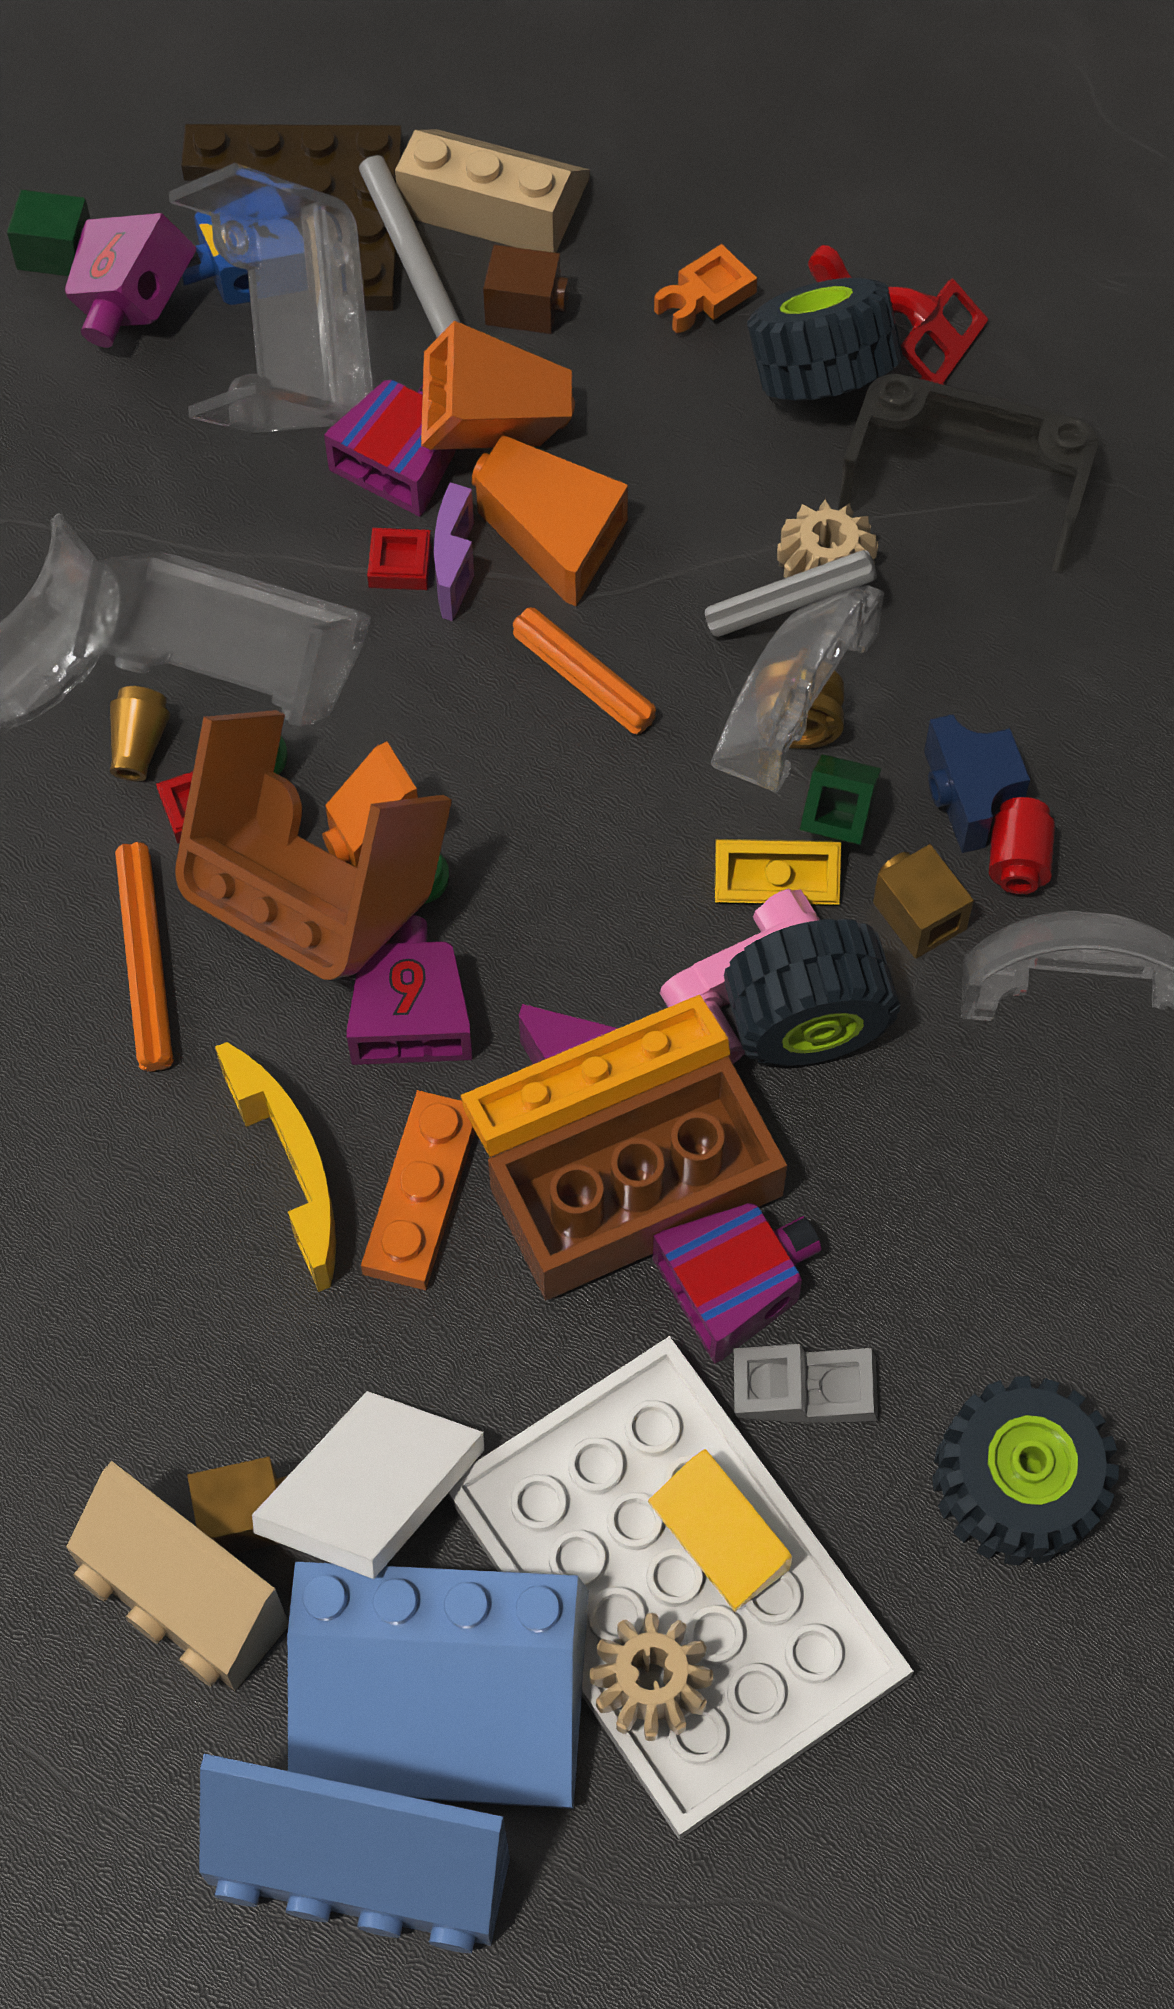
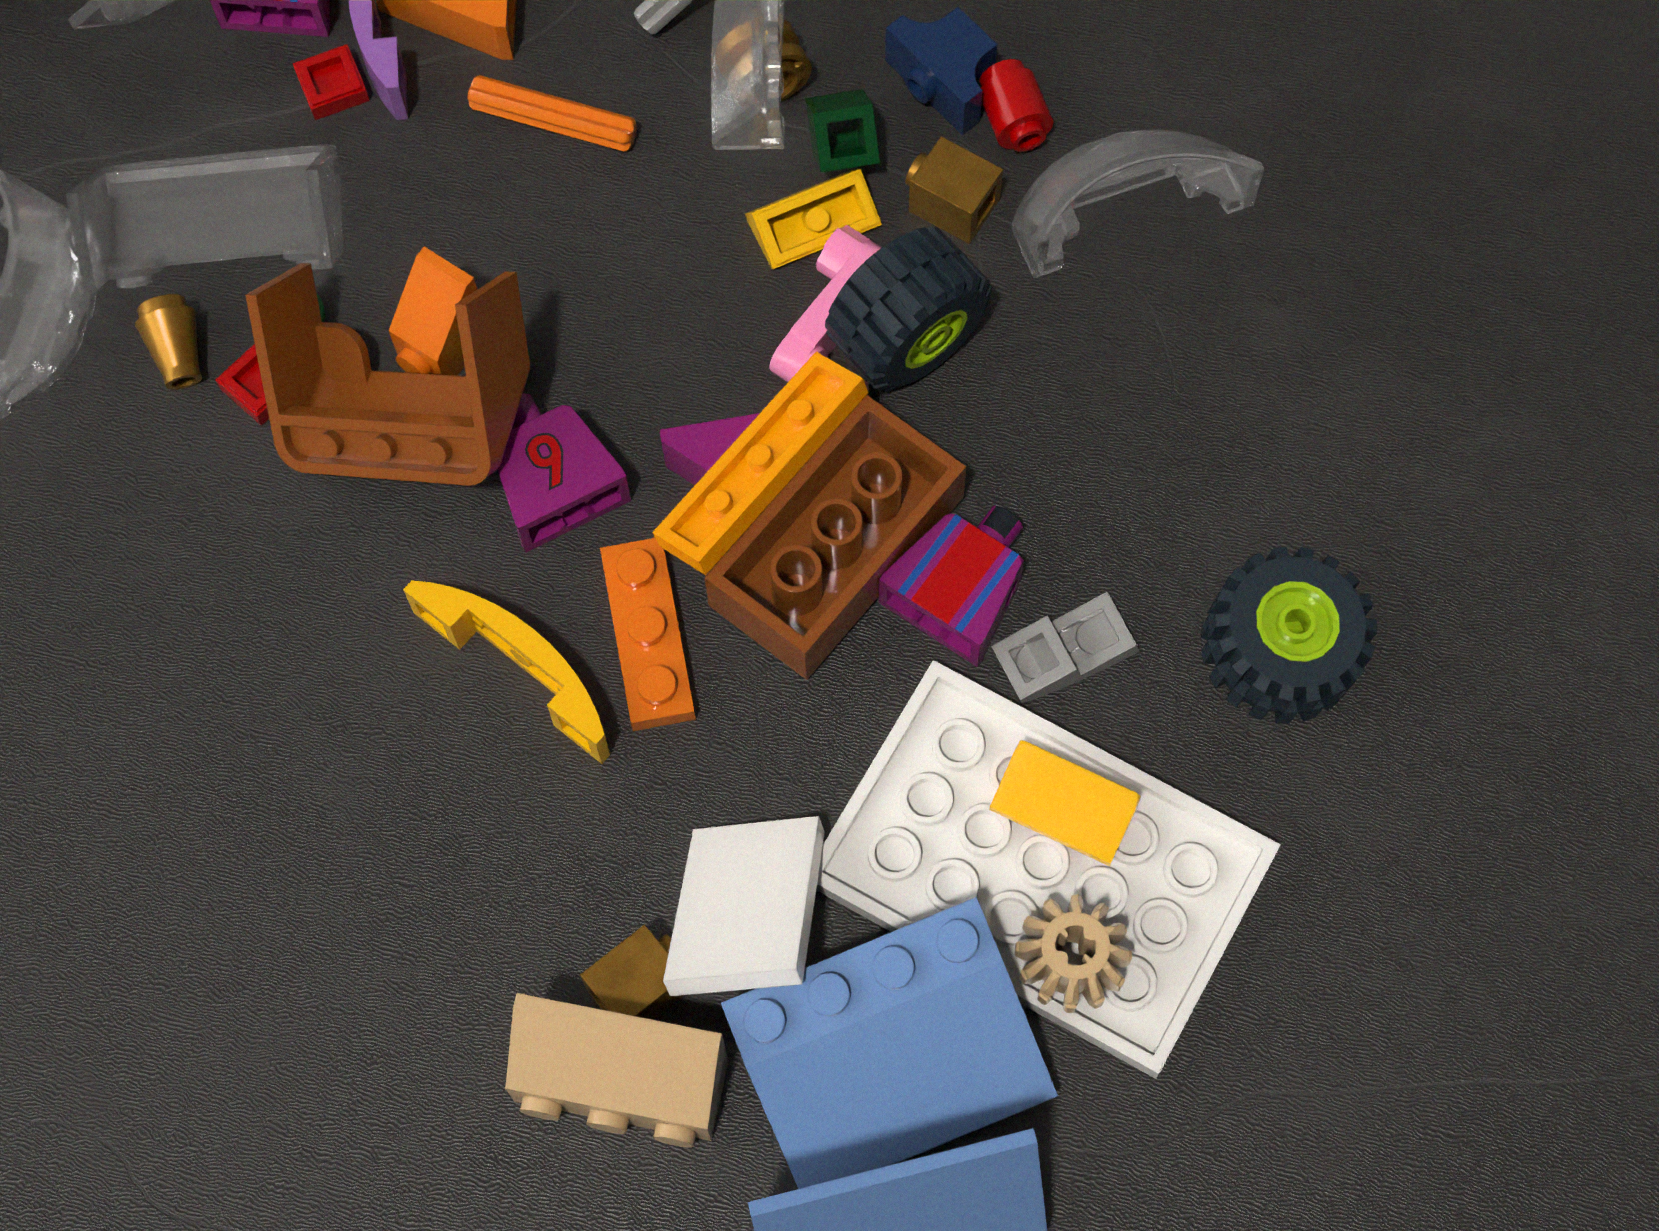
camera: 25 degrees left, 5 degrees up
(143, 957) = (287, 540): orange axle -> none

